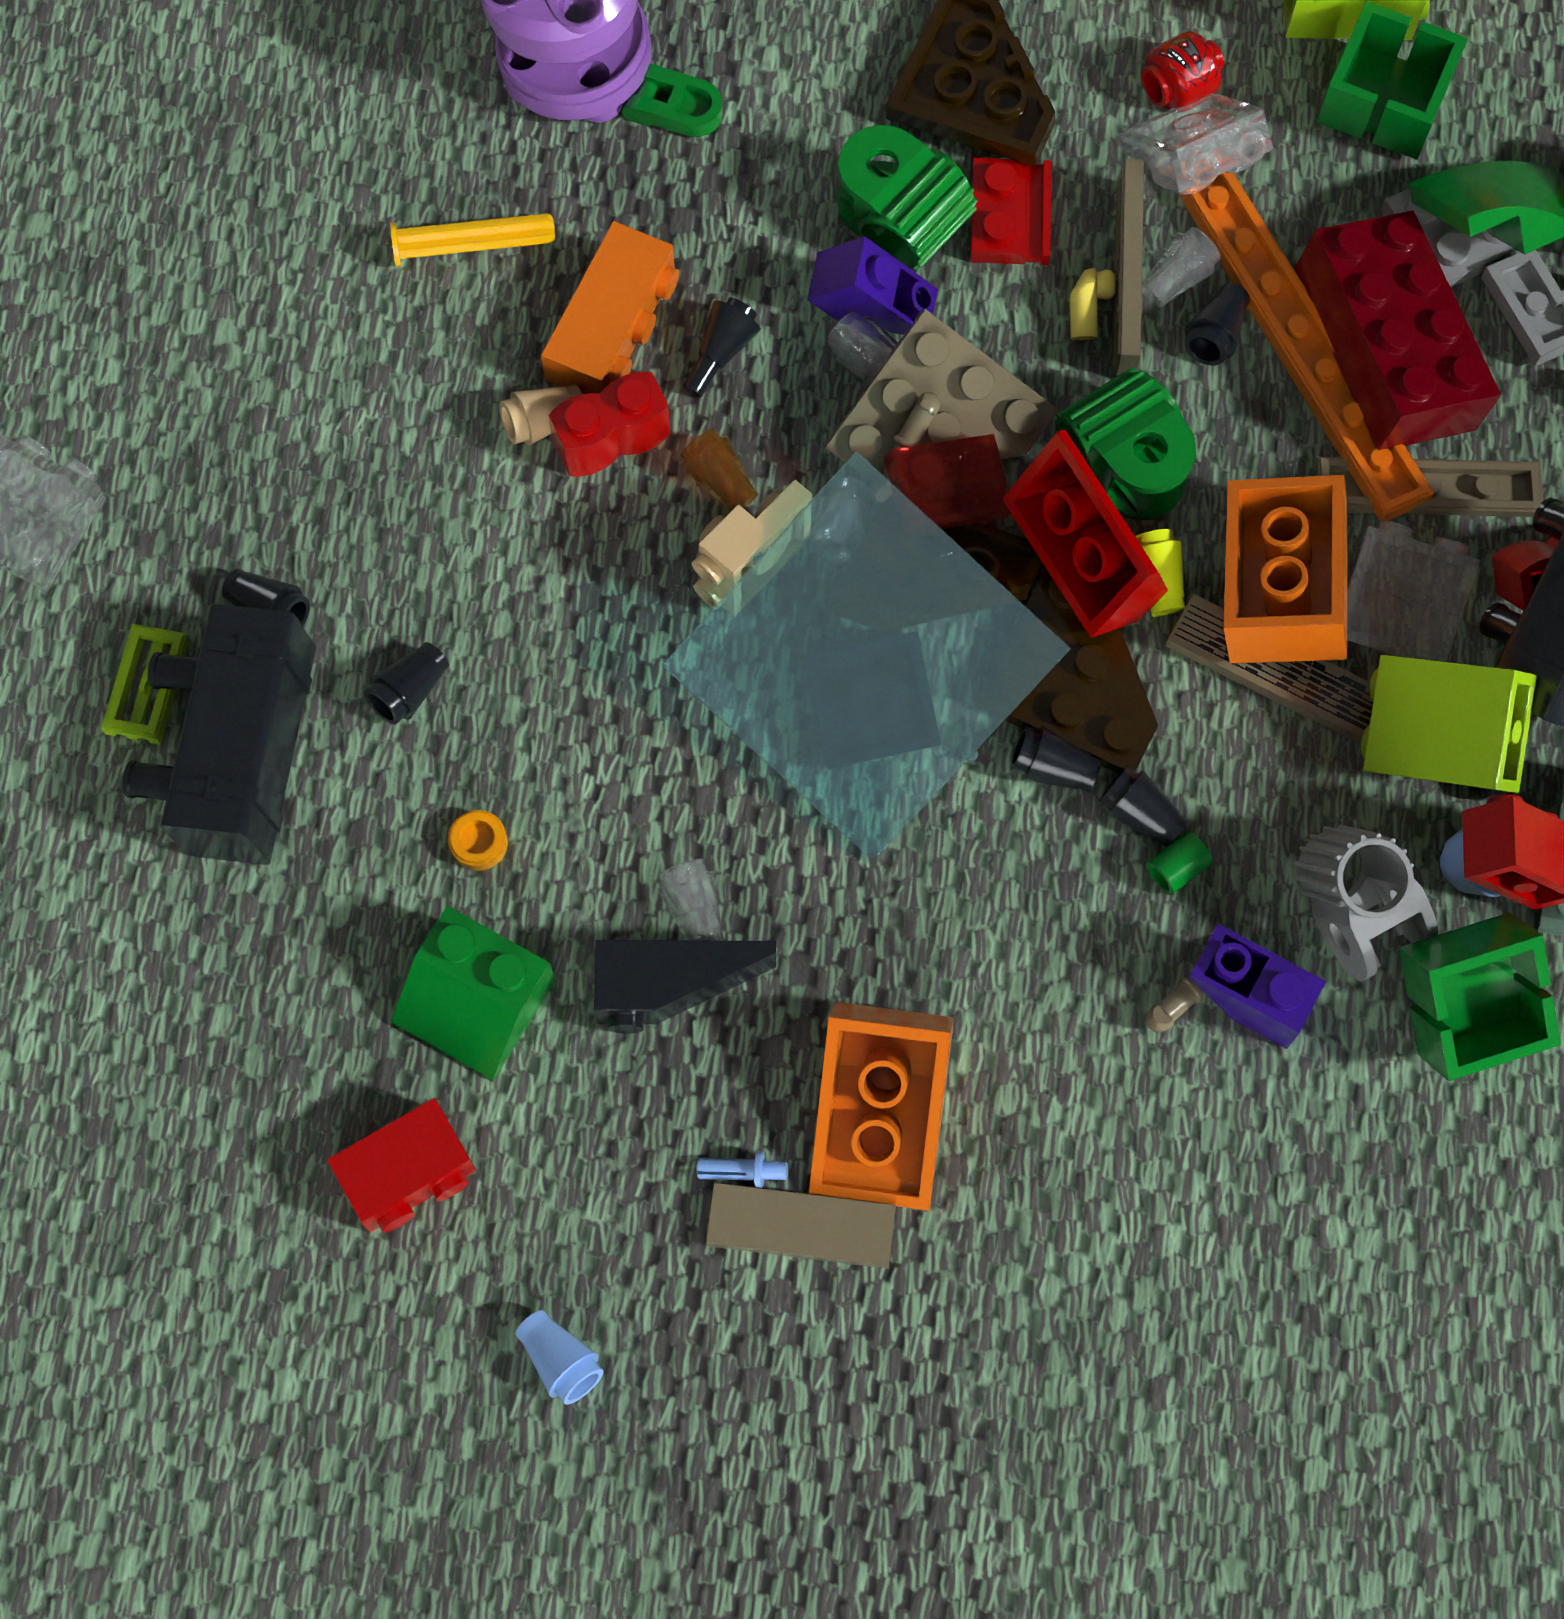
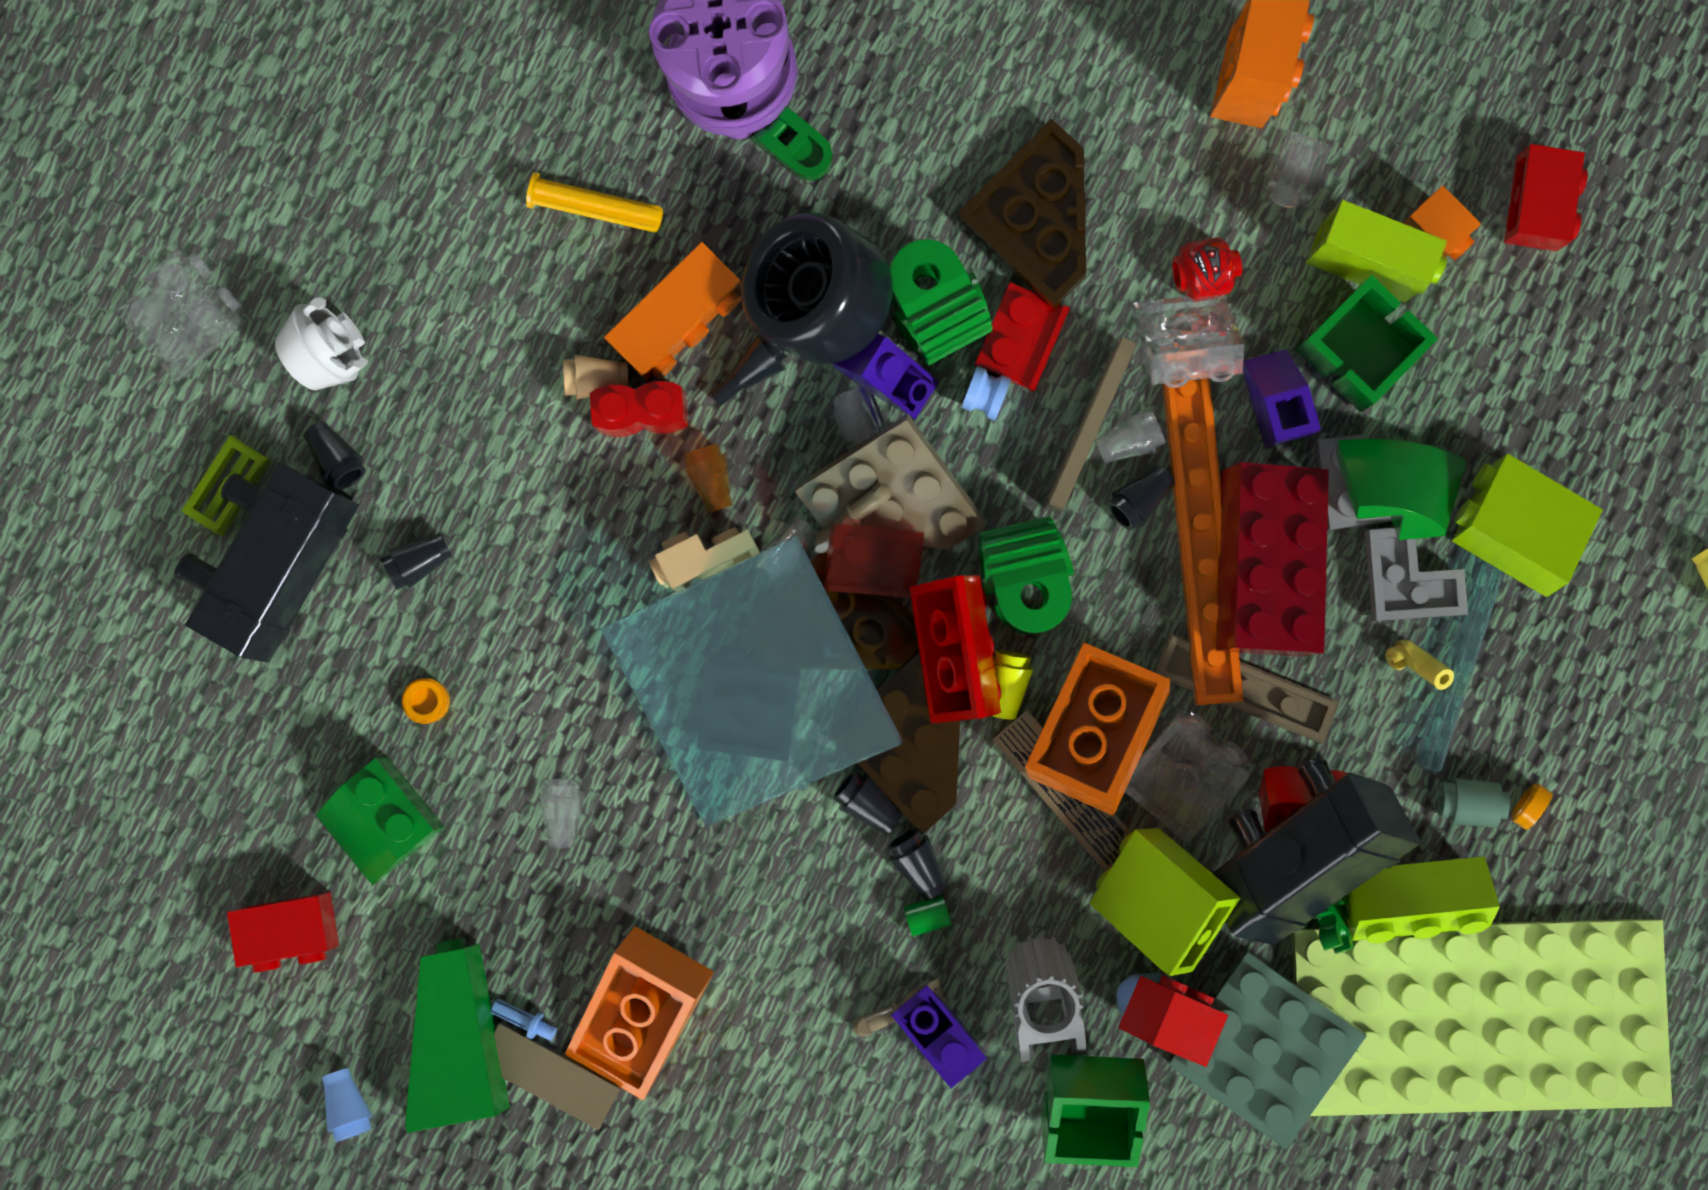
camera: 25 degrees right, 15 degrees up
(208, 482) = (319, 346): none -> white cone
(662, 978) = (511, 861): black slope -> none
(671, 1230) = (454, 1045): none -> green slope
(766, 215) = (816, 288): none -> black wheel
(997, 275) = (986, 393): none -> light blue wheel
(1083, 302) = (1044, 439): light yellow arm -> none
(1328, 171) = (1280, 399): none -> dark purple slope

